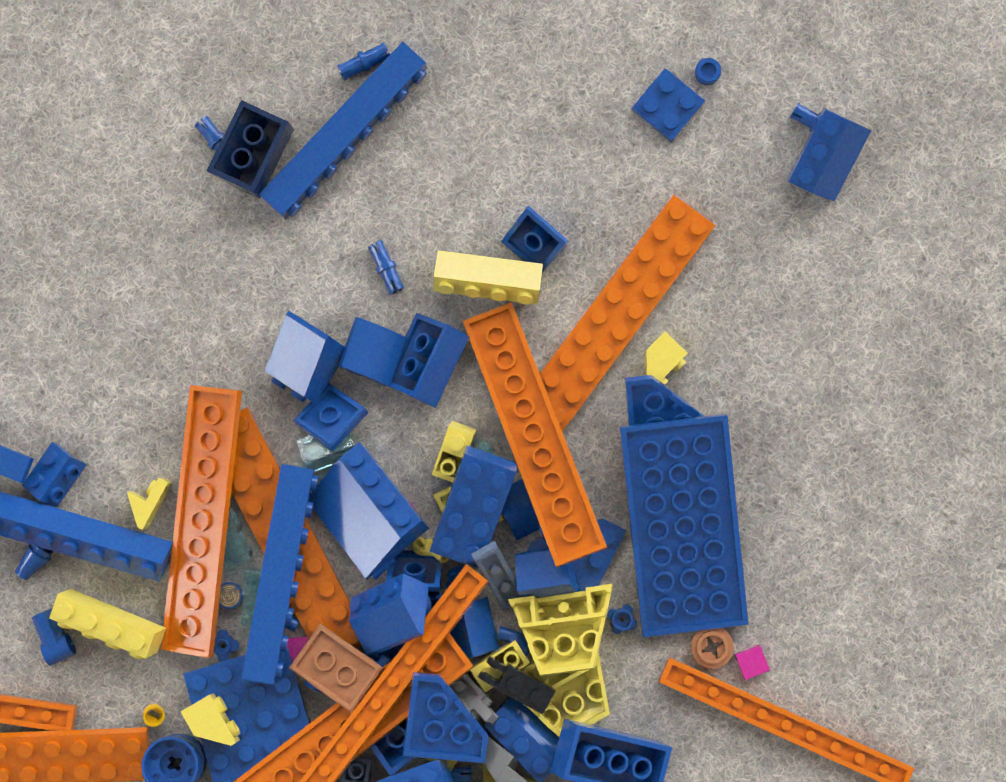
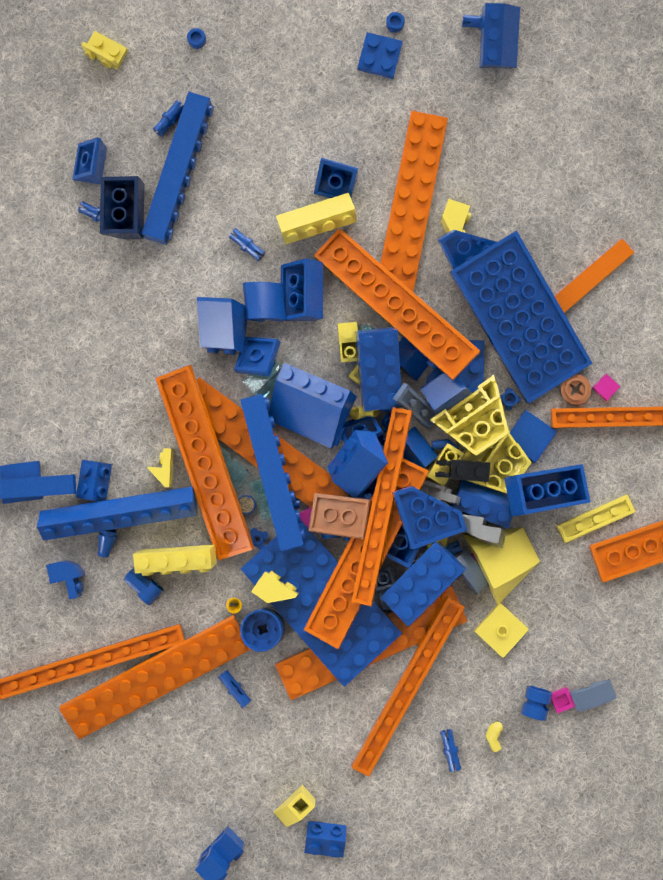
camera: 20 degrees left, 0 degrees up
(238, 70) = (90, 161): none -> blue slope
(628, 678) = (532, 435): none -> blue tile
(802, 512) = (593, 274): none -> orange tile

